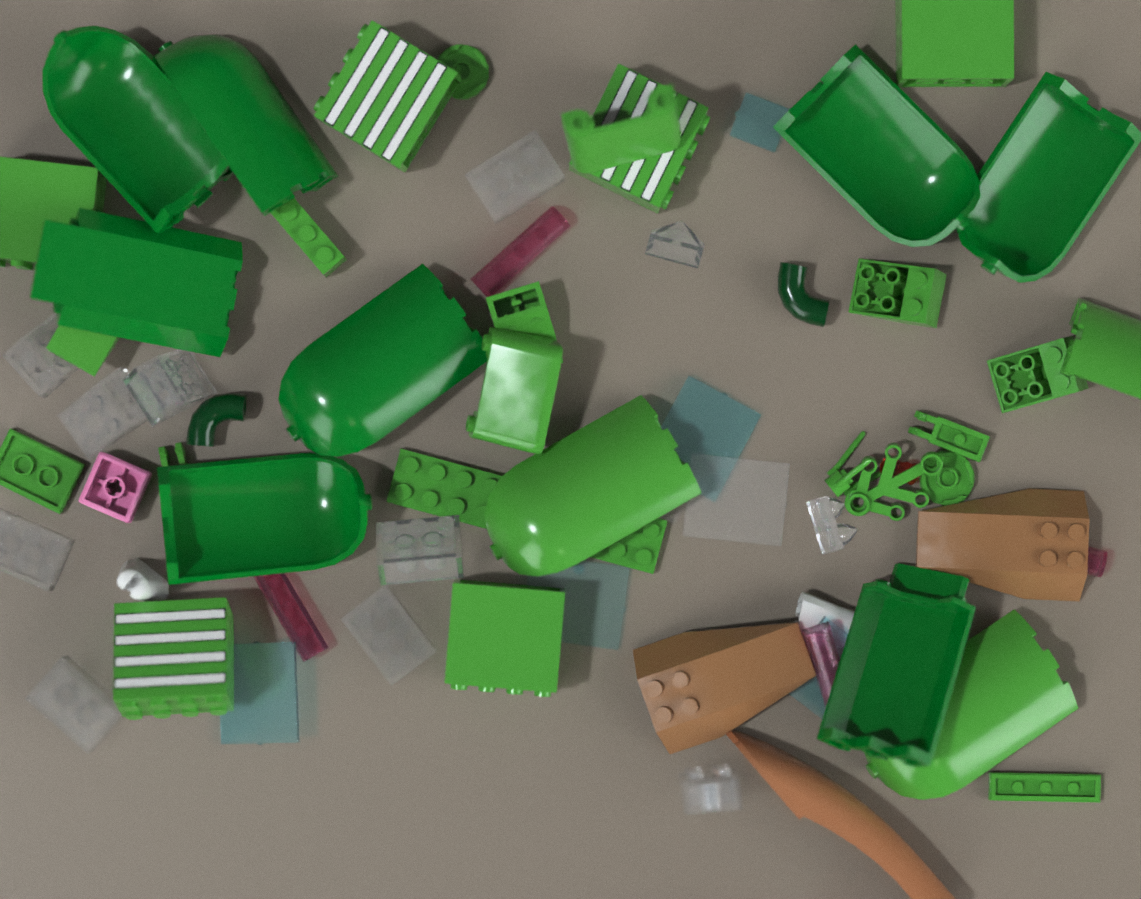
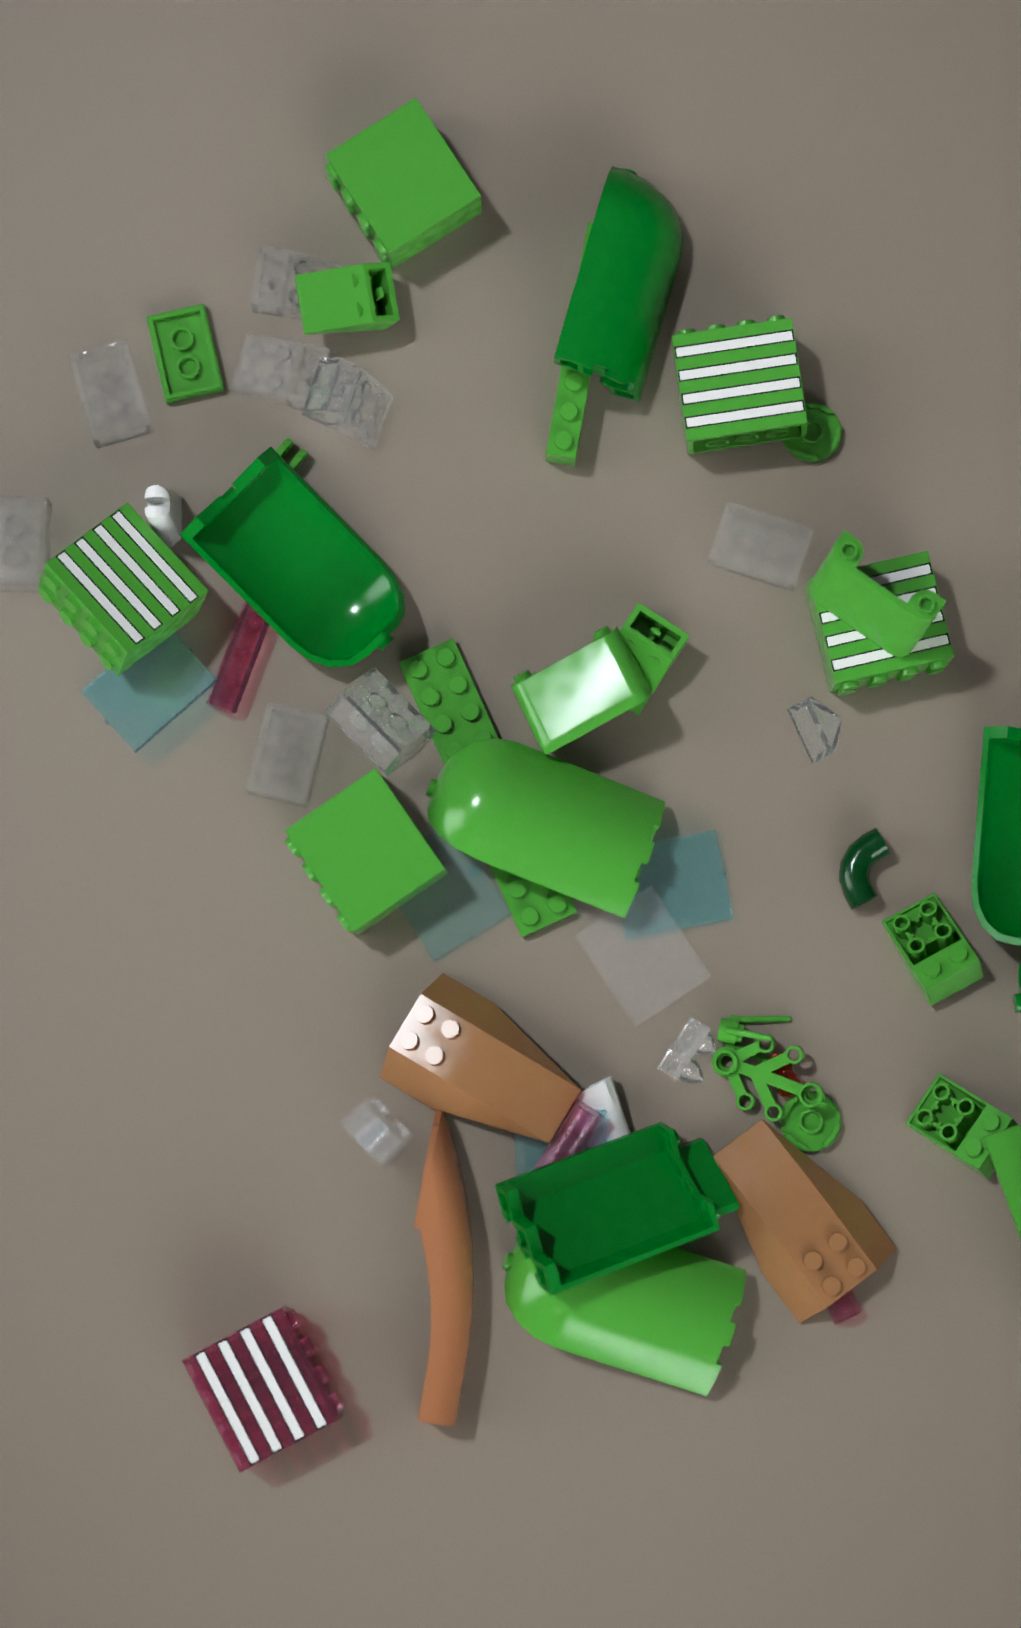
camera: 55 degrees right, 5 degrees down
(99, 495) = (208, 420): bright pink brick -> none
(131, 123) = (539, 192): green panel -> none
(138, 284) = (414, 304): green panel -> none
(212, 413) = (353, 458): dark green cylinder -> none
(379, 367) = (506, 561): green panel -> none
(520, 252) = (702, 604): clear pink brick -> none
(756, 121) = (975, 711): clear light blue piece -> none
(952, 436) = (849, 1096): bright green hinge -> none
(1044, 787) = (615, 1424): bright green tile -> none

